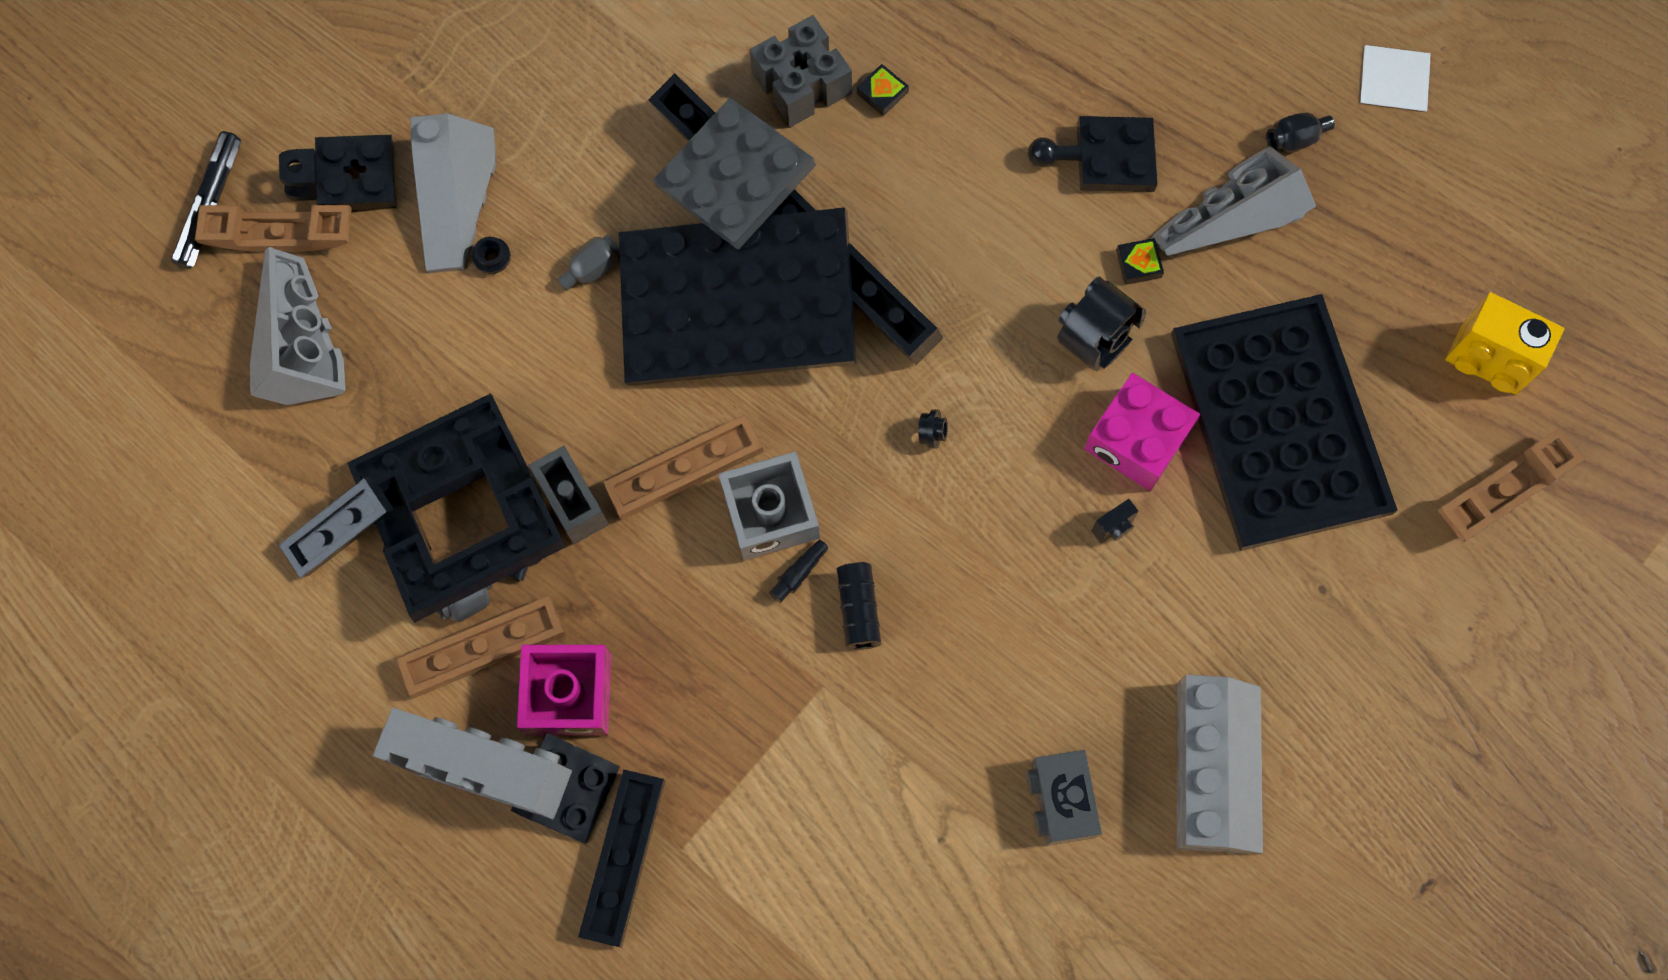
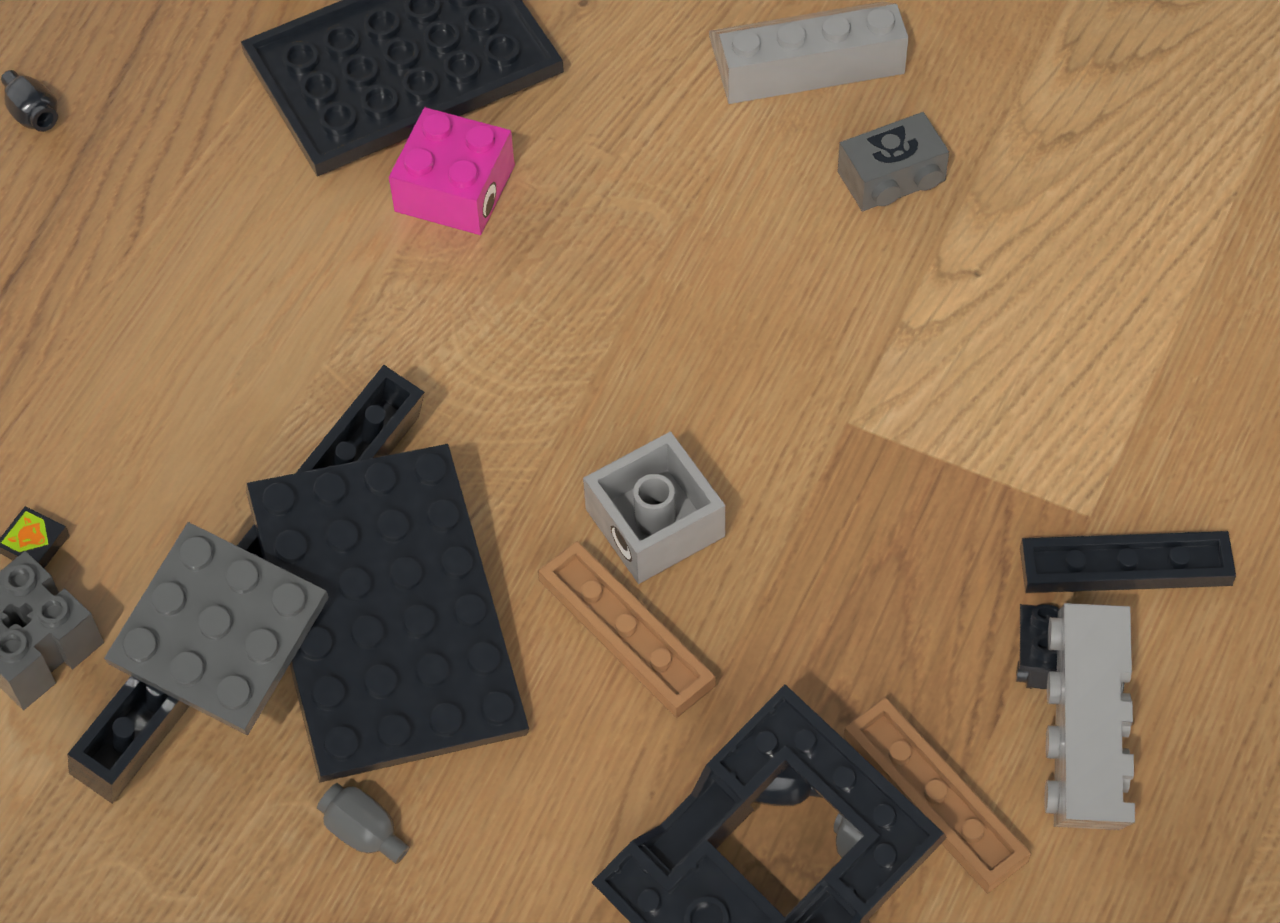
camera: 105 degrees left, 15 degrees down
(564, 690) = (960, 666): dark pink brick -> none
(568, 494) = (702, 731): dark grey brick -> none
(798, 572) = (729, 476): black animal -> none
(858, 606) = (745, 397): black axle -> none
(932, 428) = (501, 373): black plate -> none
(1100, 324) = (331, 224): black brick -> none
(1110, 153) = (86, 274): black plate -> none
(1115, 522) = (566, 177): black plate -> none
(1140, 261) = (229, 221): tile -> none
(1258, 197) = (134, 128): light grey wedge -> none

